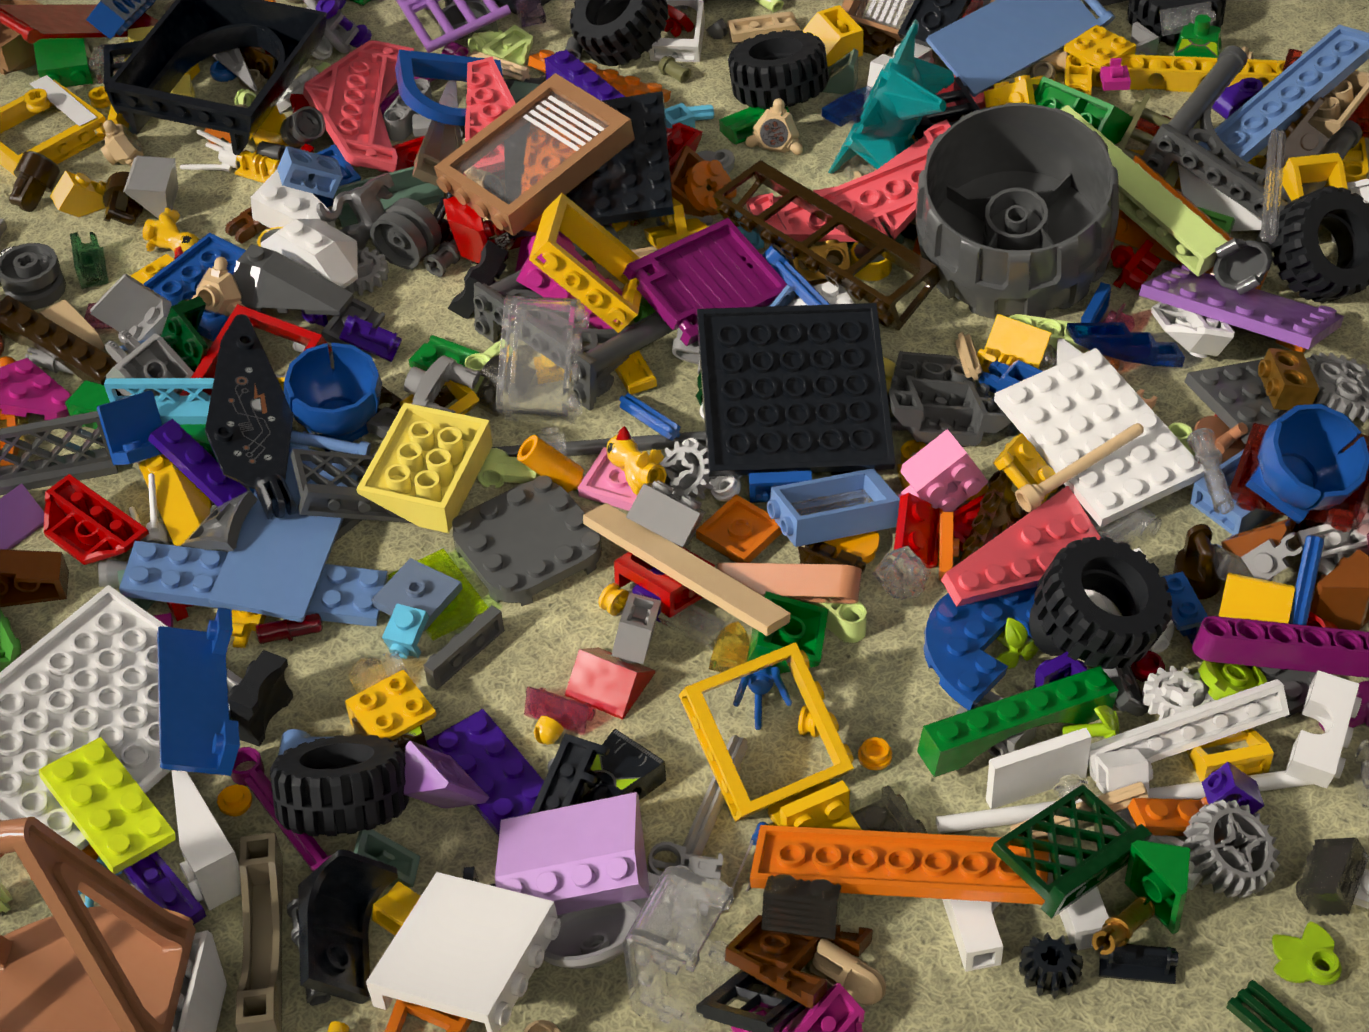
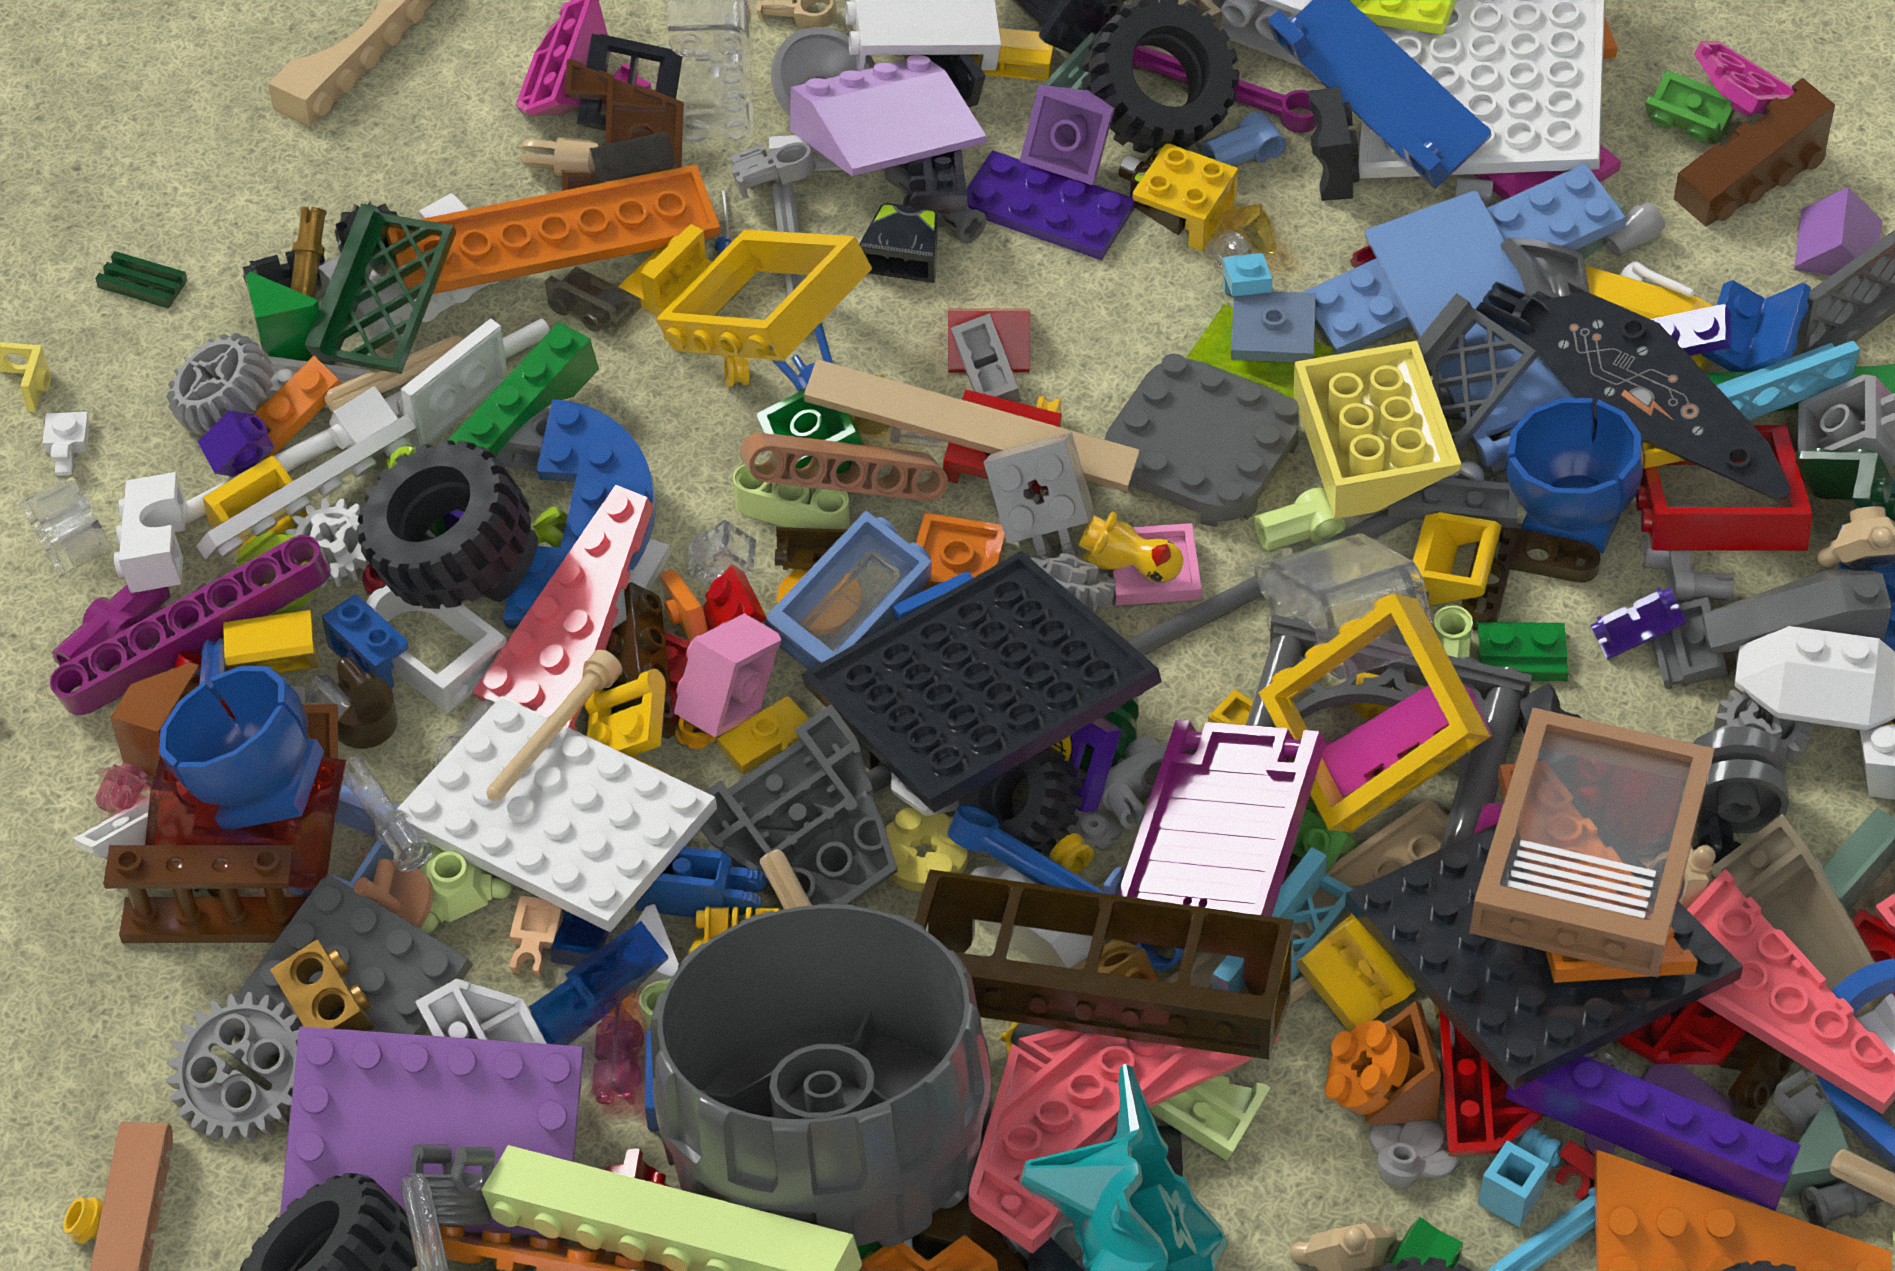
camera: 150 degrees right, 5 degrees up
(87, 523) = (1711, 245): red wedge -> none
(234, 800) = (1281, 79): light orange plate -> none
(365, 205) = (1835, 797): flat silver animal -> none
(428, 384) = (1473, 530): light grey connector -> none
(463, 647) = (1174, 297): dark grey plate -> none
(547, 730) = (1023, 259): yellow hinge -> none
(550, 462) = (1238, 517): light orange brick -> none
(568, 713) = (1034, 277): clear pink hinge -> none
(650, 416) = (1179, 657): blue axle -> none
(875, 754) = (648, 368): light orange plate -> none
(1302, 956) = (118, 344): lime plate -> none
(1332, 876) = (108, 410): clear smoke brick -> none

